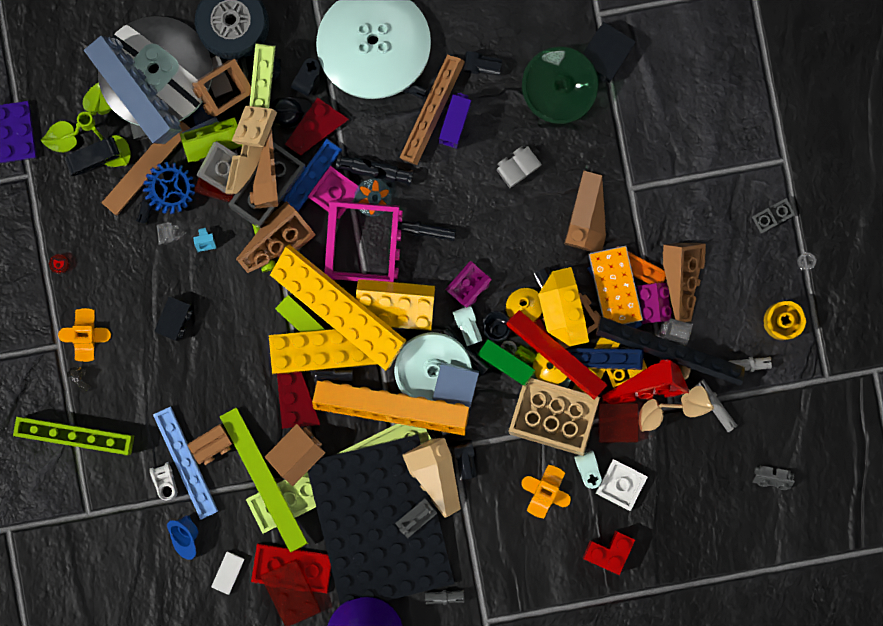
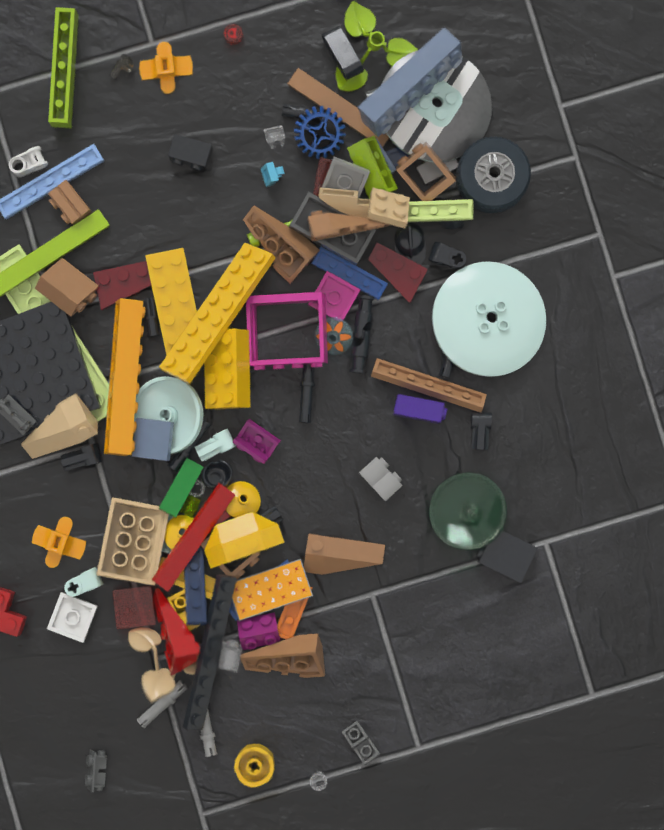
camera: 90 degrees right, 0 degrees up
(297, 316) = (206, 275): lime tile -> none

